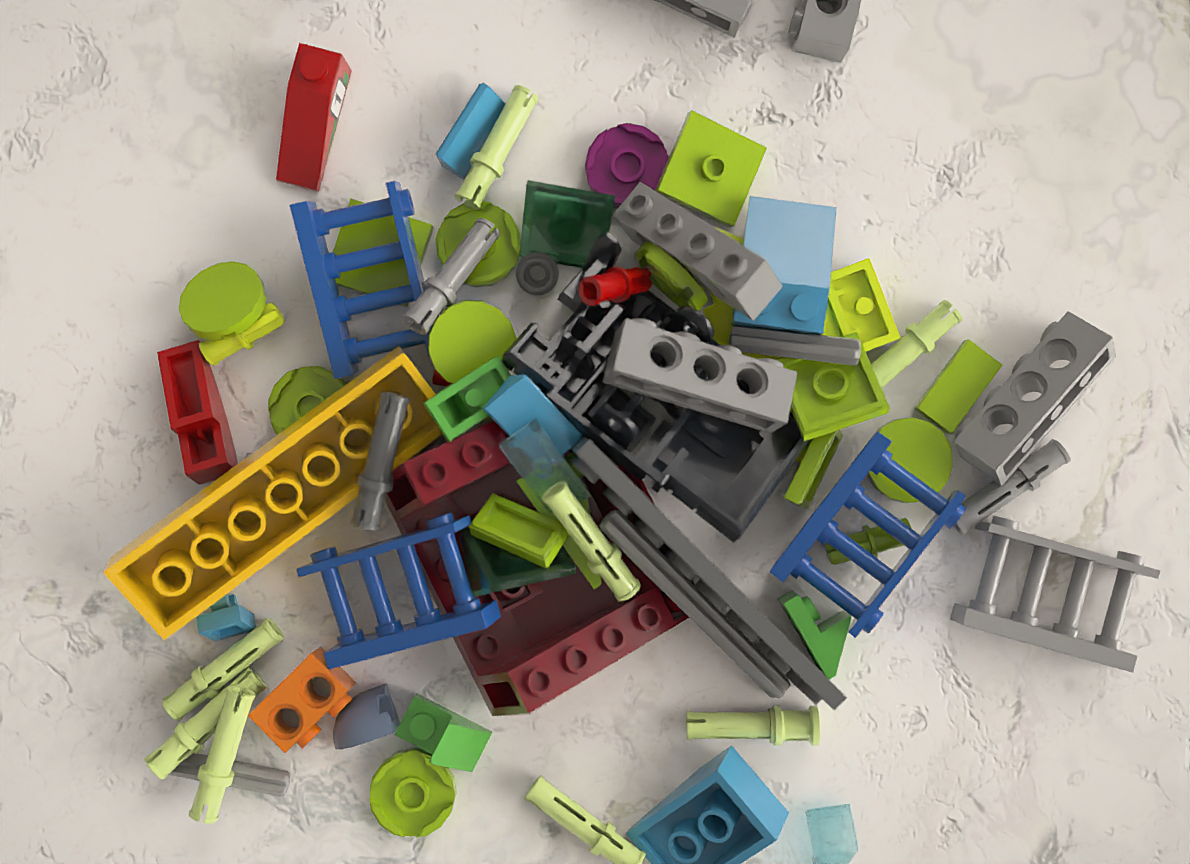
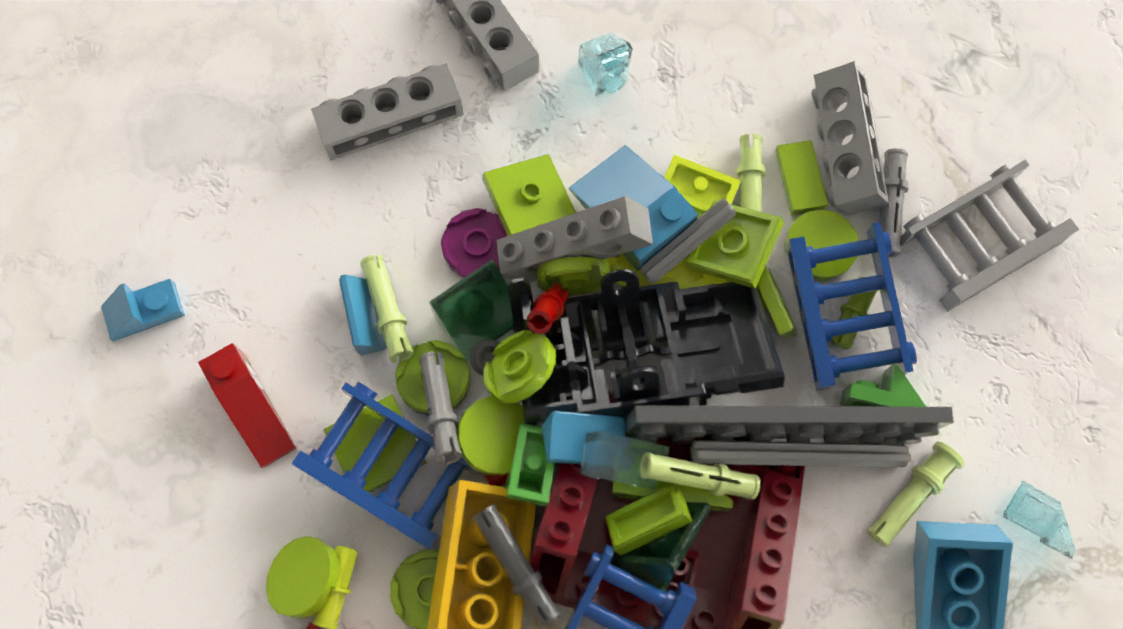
camera: 45 degrees left, 15 degrees down
(542, 310) = (519, 366): none -> lime tile
(633, 370) = (683, 297): light grey brick -> none
(901, 114) = (605, 62): none -> clear light blue slope

